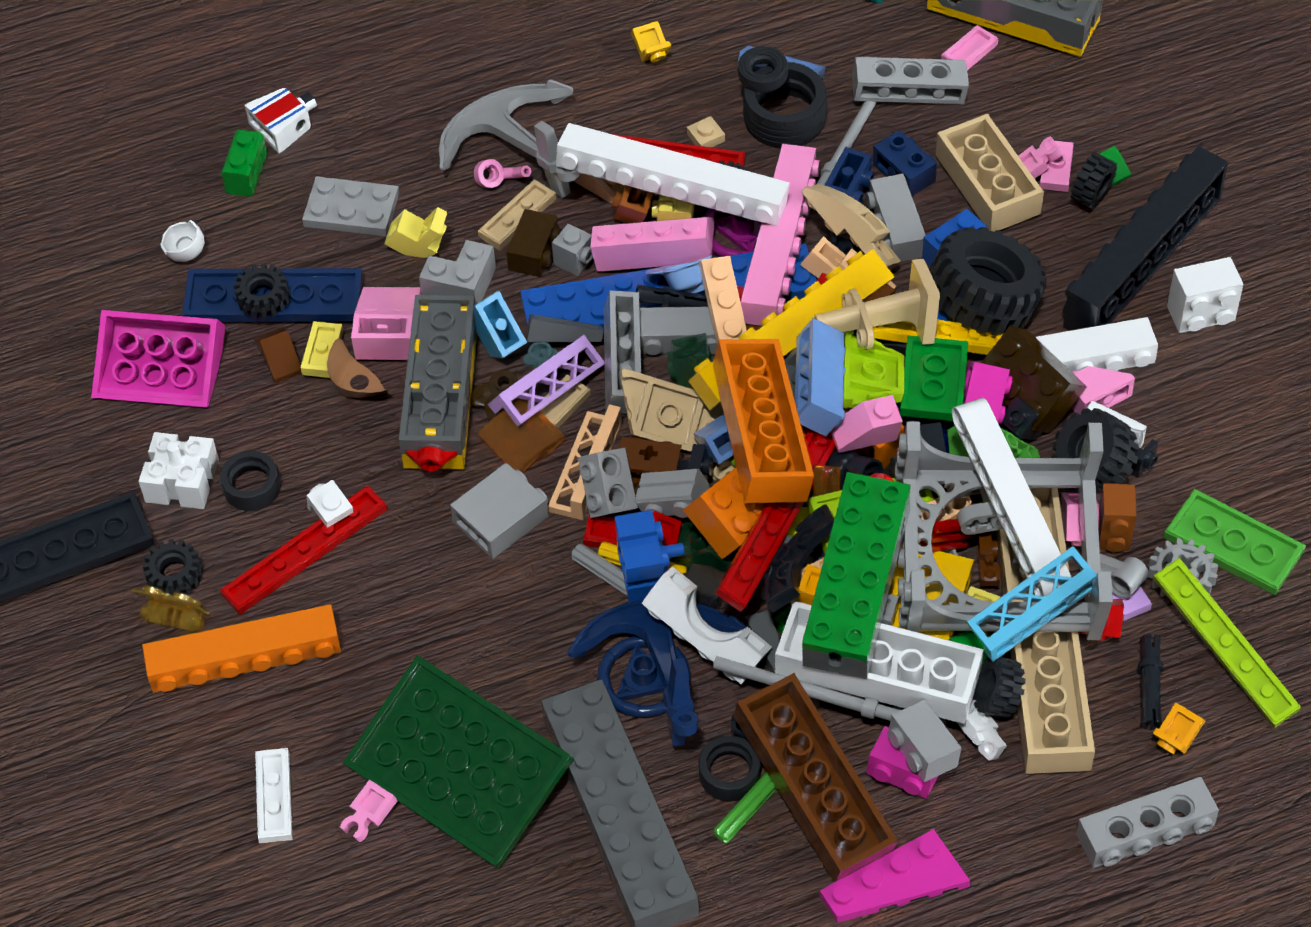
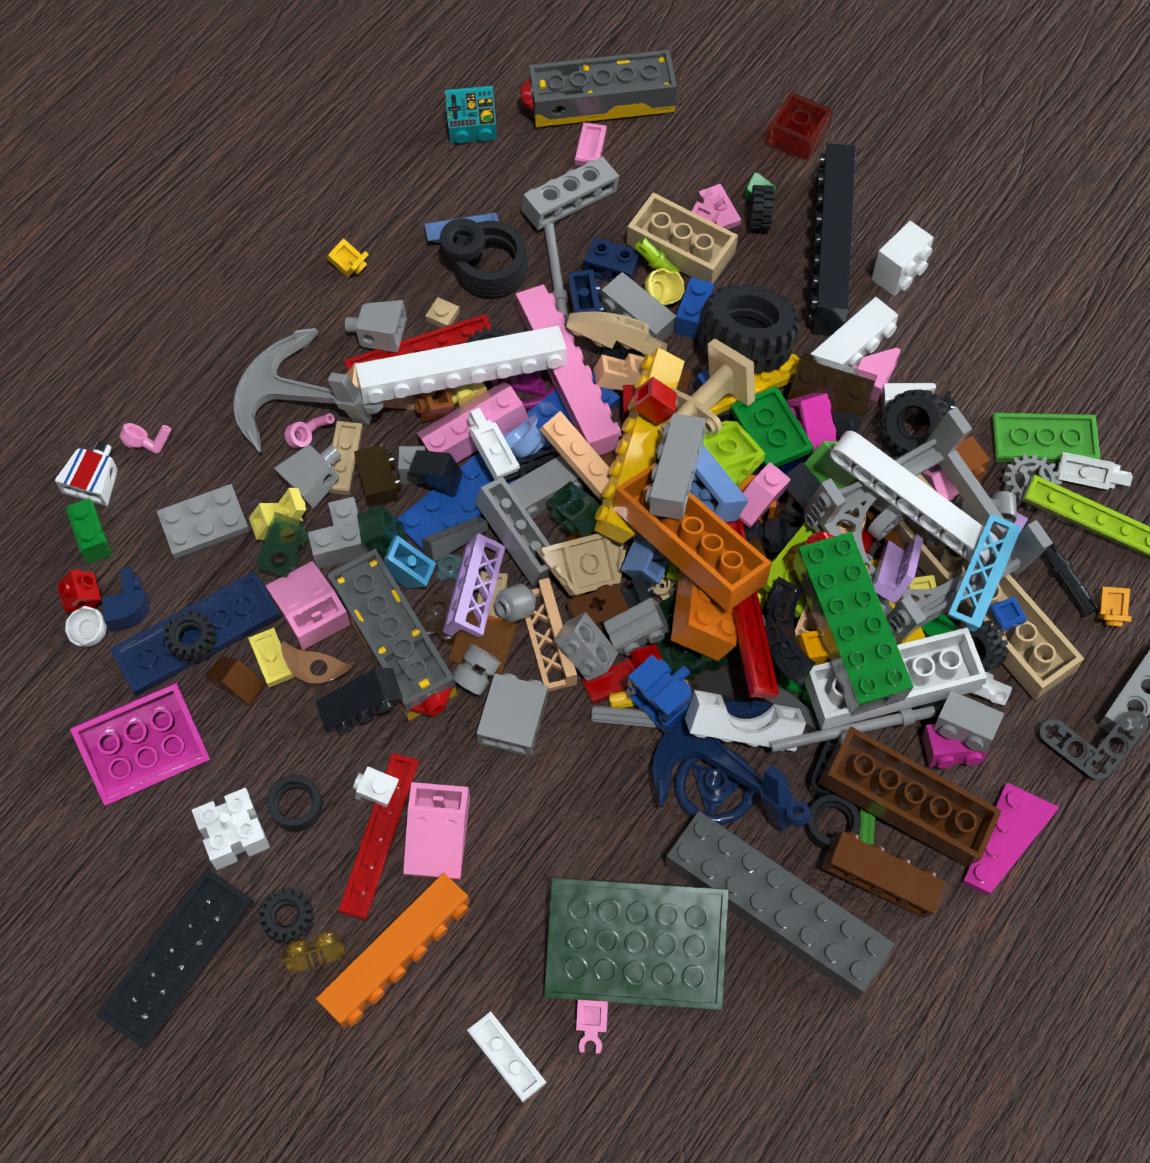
camera: 35 degrees left, 10 degrees up
(199, 206) = (78, 590): none -> red brick
(231, 244) = (128, 608): none -> dark blue brick
(345, 105) = (135, 436): none -> bright pink plate
(355, 567) = (436, 830): none -> bright pink slope
(364, 417) = (359, 700): none -> black brick
(393, 248) = (275, 542): none -> clear green brick
(472, 209) = (310, 472): none -> light grey torso
(482, 455) = (472, 678): none -> light grey wheel
(495, 275) = (378, 529): none -> clear green brick
(573, 413) = (515, 603): none -> light grey head
(586, 261) = (437, 470): none -> black slope
(635, 113) = (379, 325): none -> light grey torso
(647, 259) = (492, 445): none -> white hinge
(737, 834) = (884, 874): none -> reddish brown brick
(789, 346) = (676, 466): none -> light grey brick
(825, 289) = (655, 400): none -> red brick
(936, 207) = (665, 286): none -> light yellow hair
(948, 179) = (655, 258): none -> lime pin
(953, 559) = (897, 569): none -> lavender fence
(1043, 850) = (1091, 752): none -> dark grey beam
(1044, 667) = (1007, 614): none -> blue tile
(1195, 121) = (799, 126): none -> clear red brick
(1256, 595) = (1092, 471): none -> white hinge

